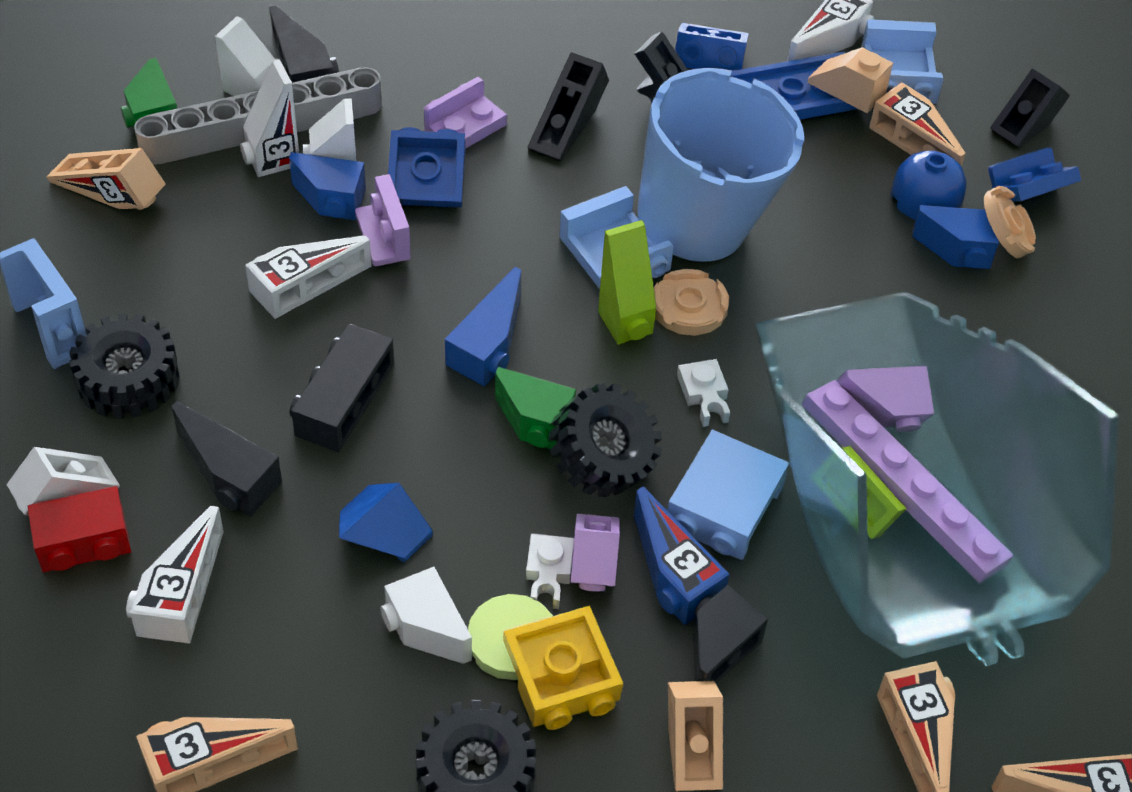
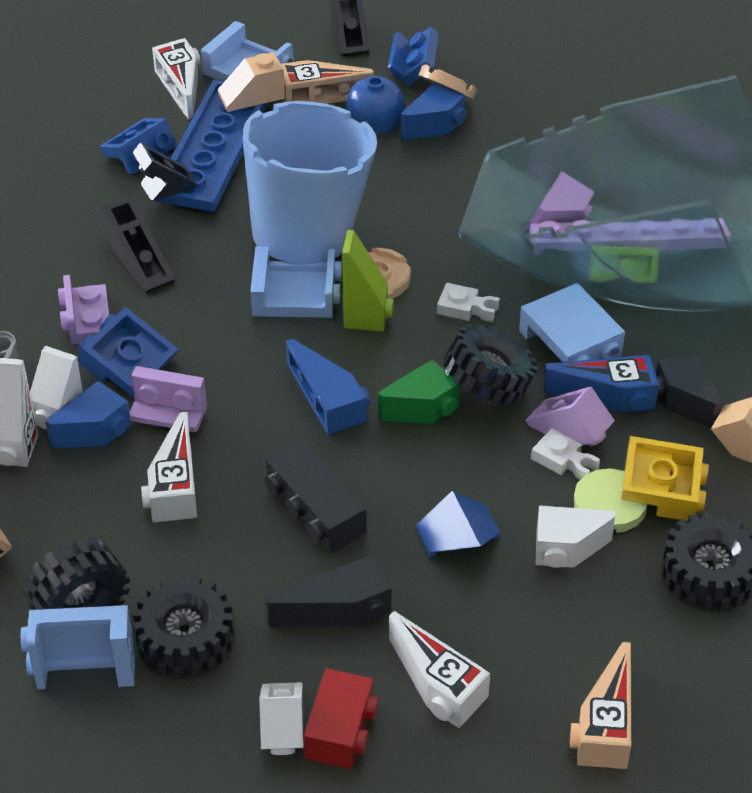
camera: 55 degrees left, 5 degrees down
(103, 264) = (77, 578): none -> black bush

